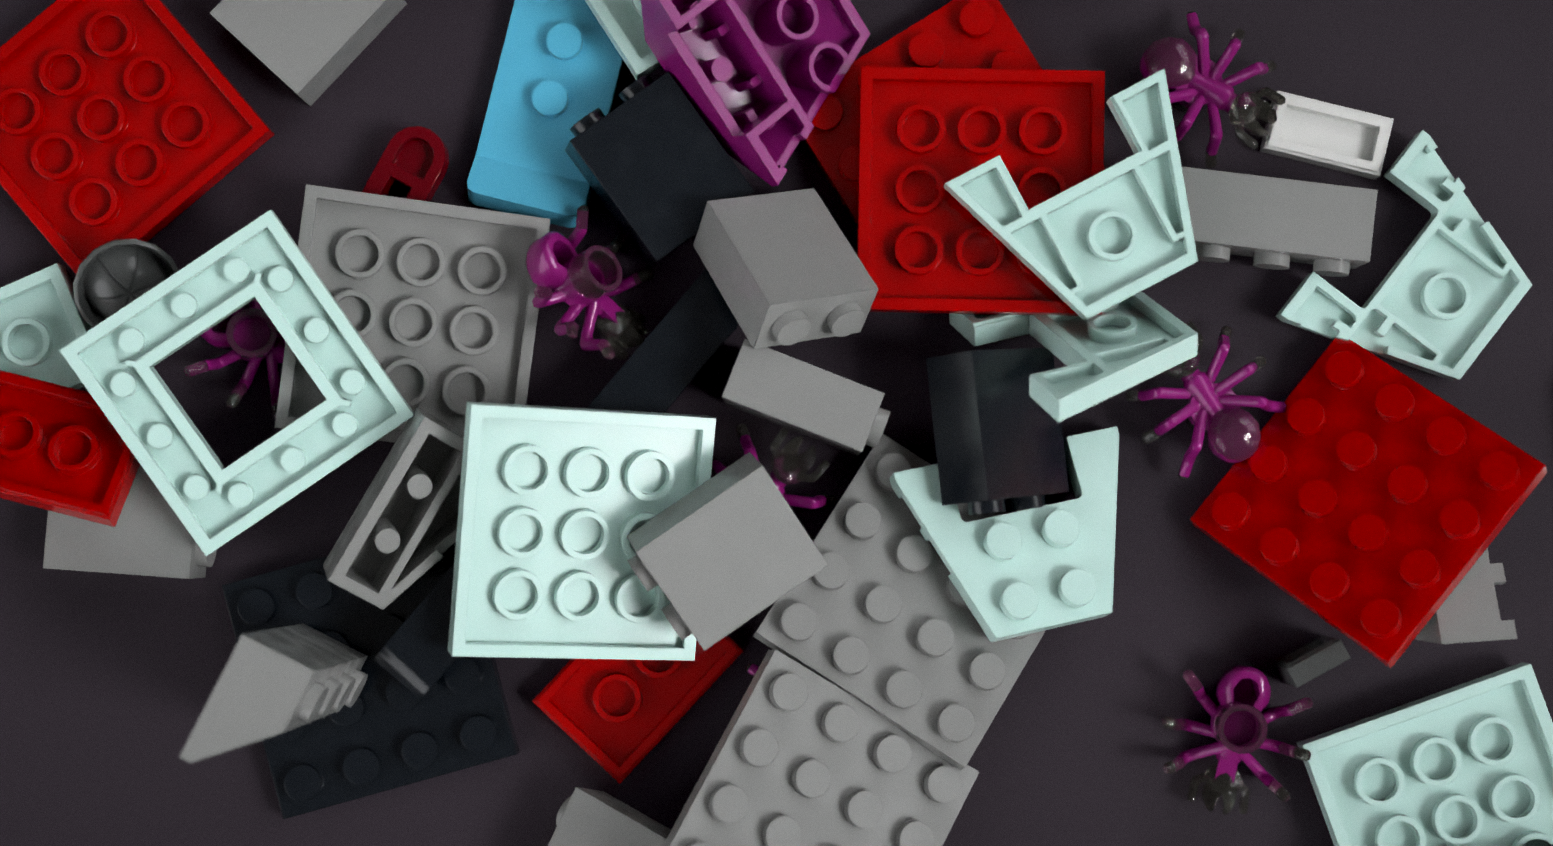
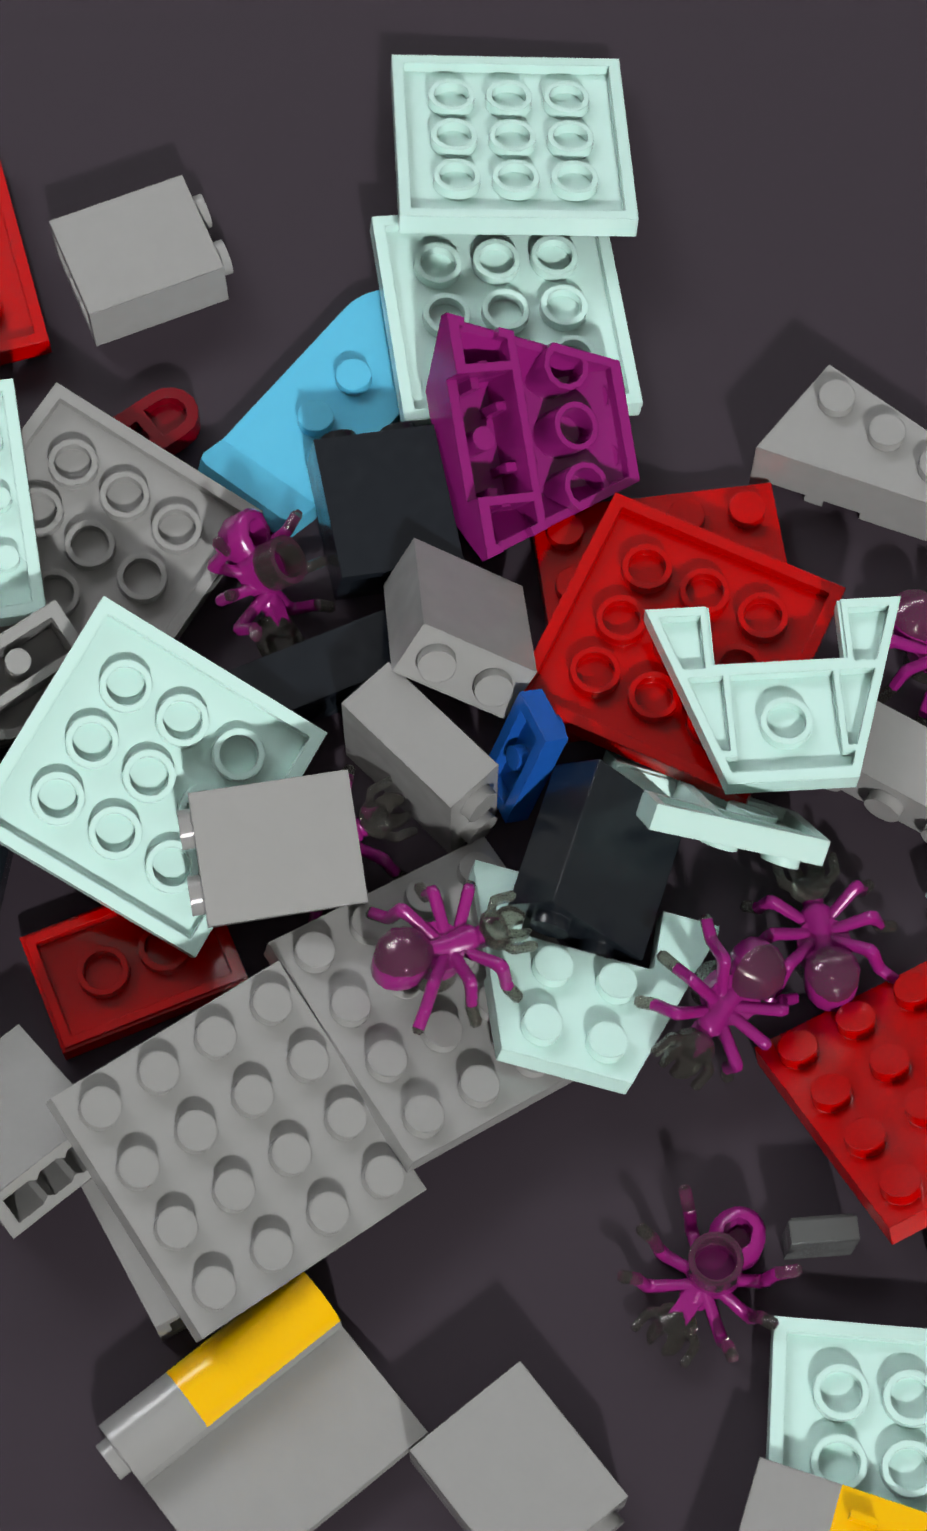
camera: 20 degrees right, 20 degrees down
(892, 354) = (526, 753): none -> blue plate
(908, 579) = (434, 951): none -> animal
(1157, 493) = (726, 995): none -> animal

